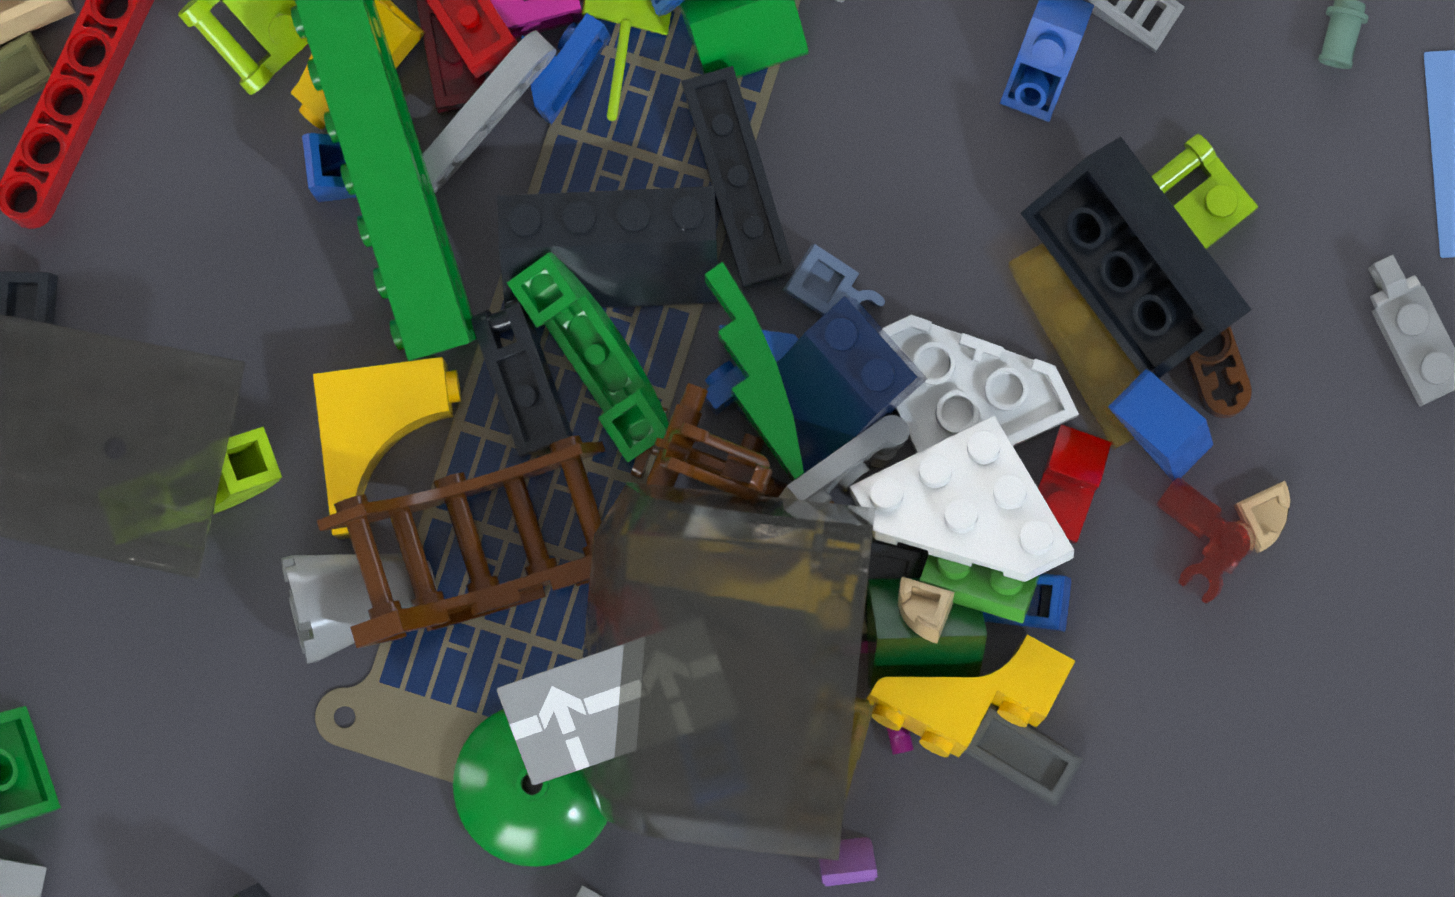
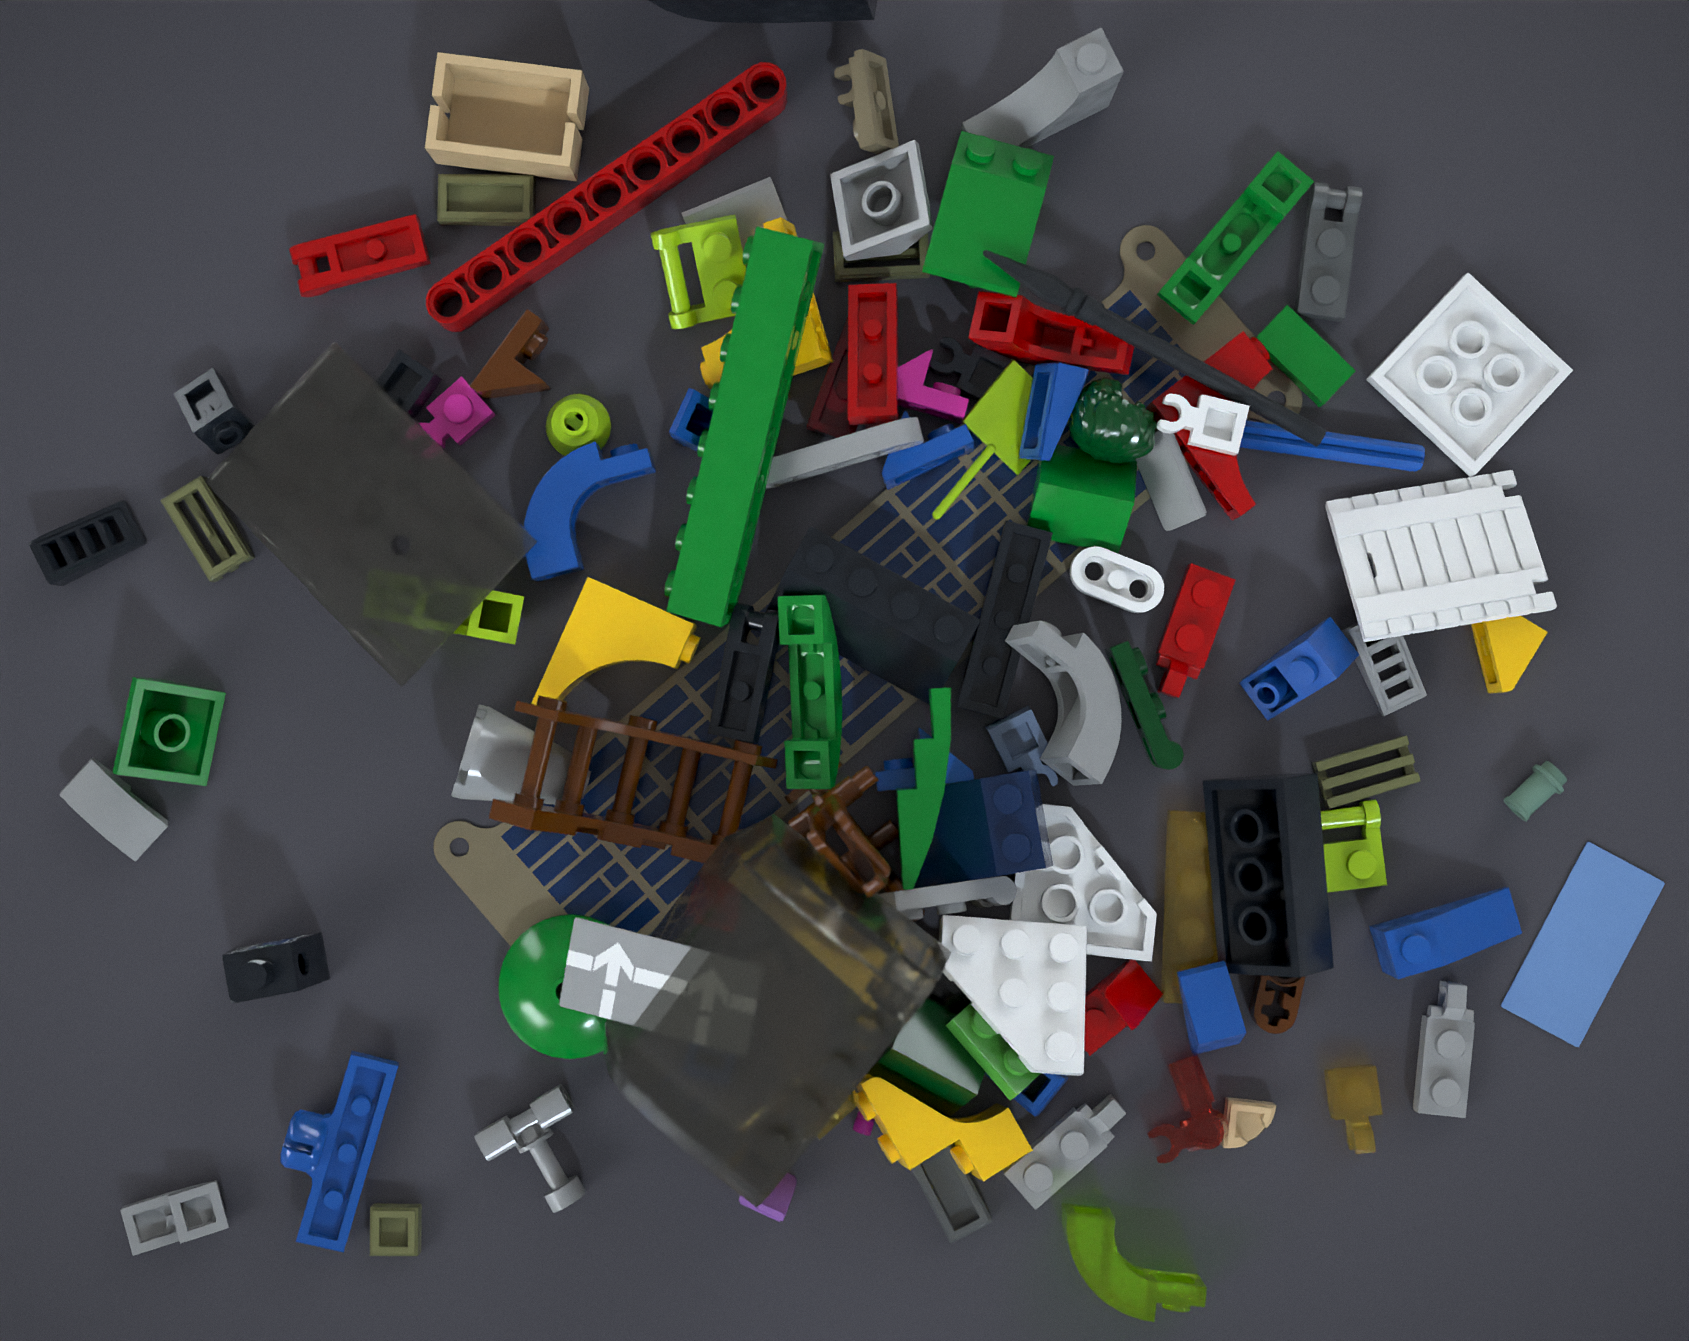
camera: 25 degrees right, 5 degrees up
(93, 298) = (457, 414): none -> dark pink plate
(115, 230) = (505, 371): none -> reddish brown slope
(230, 247) = (593, 428): none -> lime cone
(241, 313) = (560, 496): none -> blue arch
(820, 70) = (1115, 579): none -> white plate
(862, 203) = (1086, 700): none -> light grey arch
(921, 77) = (1192, 627): none -> red hinge
(922, 179) = (1143, 706): none -> dark green plate
(924, 607) = (942, 1044): tan tile -> none
(1109, 650) = (1064, 1150): none -> light grey hinge
(1201, 79) = (1403, 760): none -> olive tile
(1210, 734) = (1116, 1280): none -> clear neon green arch
(1342, 217) = (1445, 933): none -> blue slope
(1354, 427) = (1353, 1097): none -> clear yellow plate

